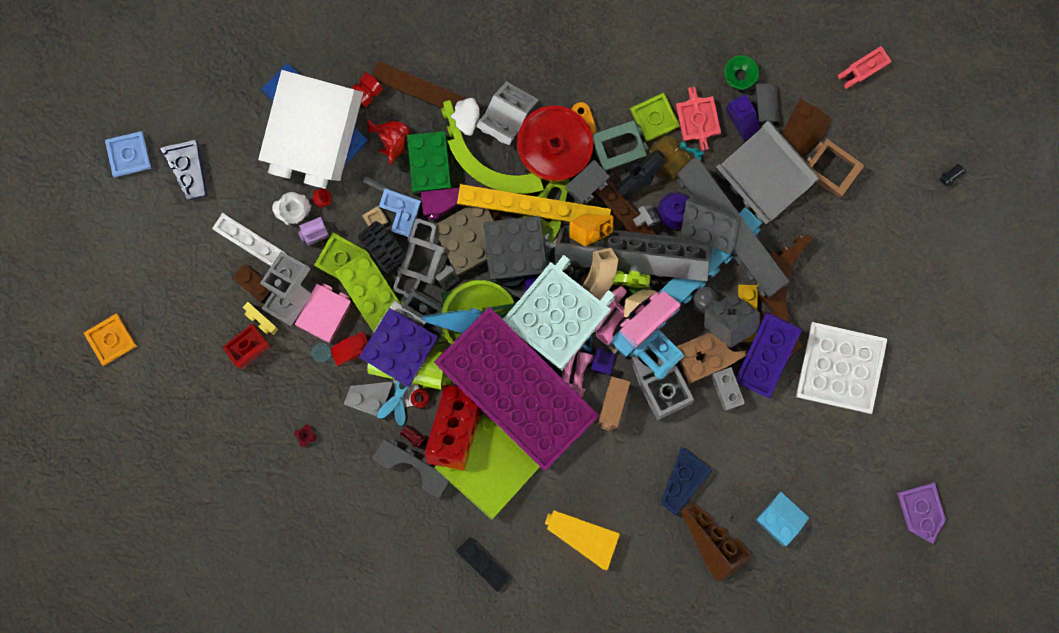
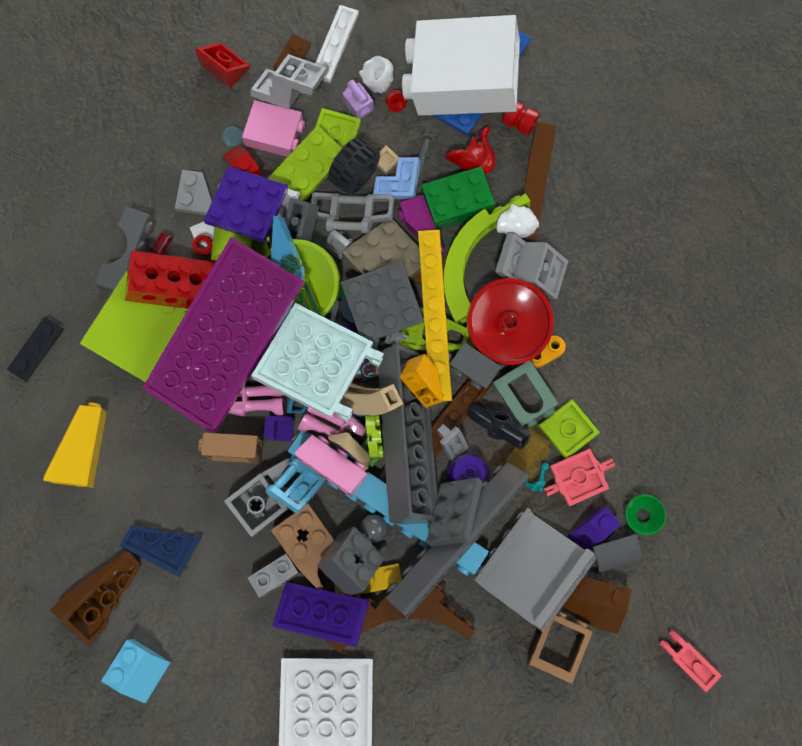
camera: 80 degrees right, 5 degrees down
(265, 324) = (257, 66): light yellow plate -> none
(300, 435) = (138, 136): dark red plate -> none
(394, 403) = (193, 221): medium azure piece -> none
(471, 315) = (290, 264): none -> clear green plate

